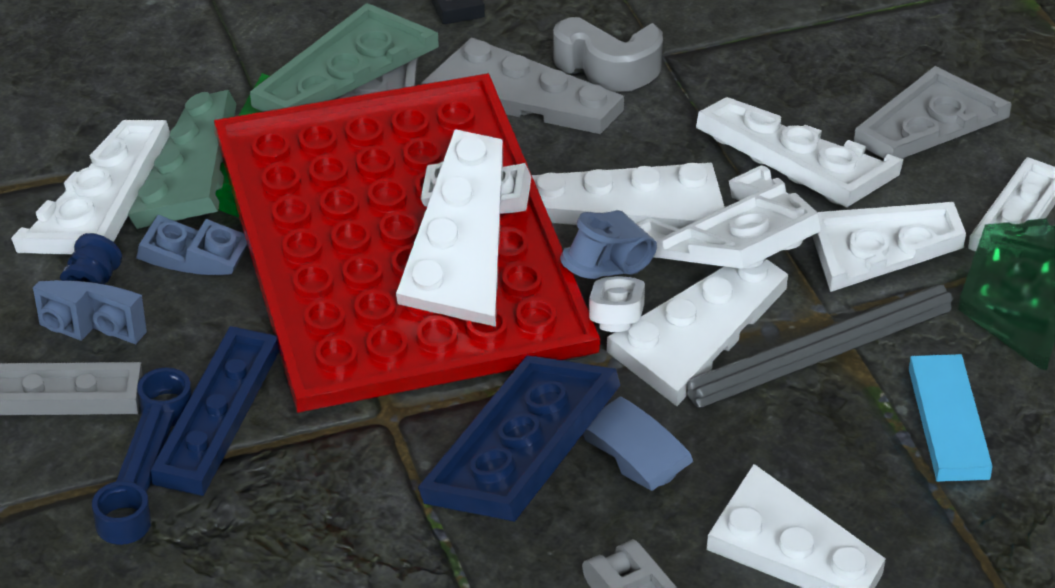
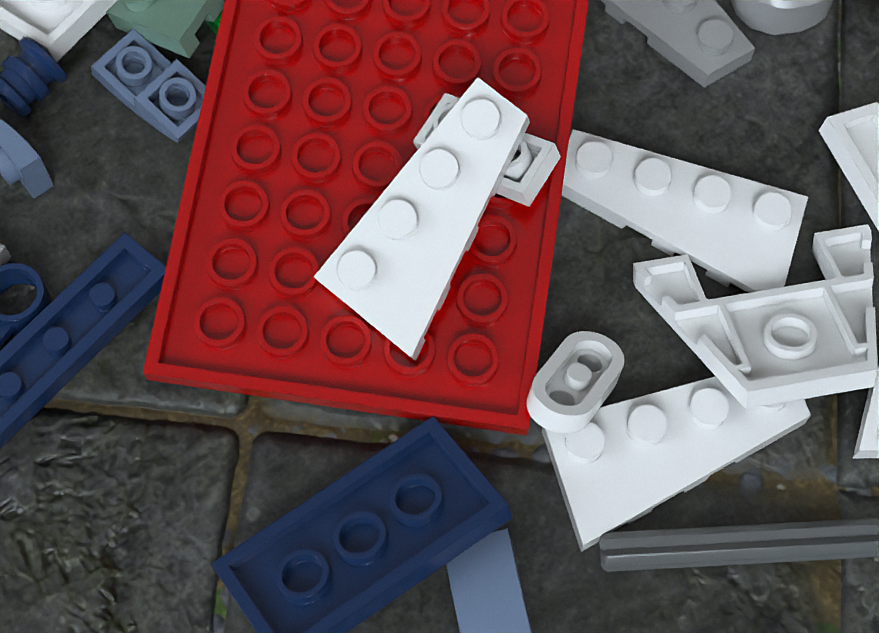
camera: 25 degrees right, 25 degrees up
(608, 246) = (601, 297): sand blue piece -> none

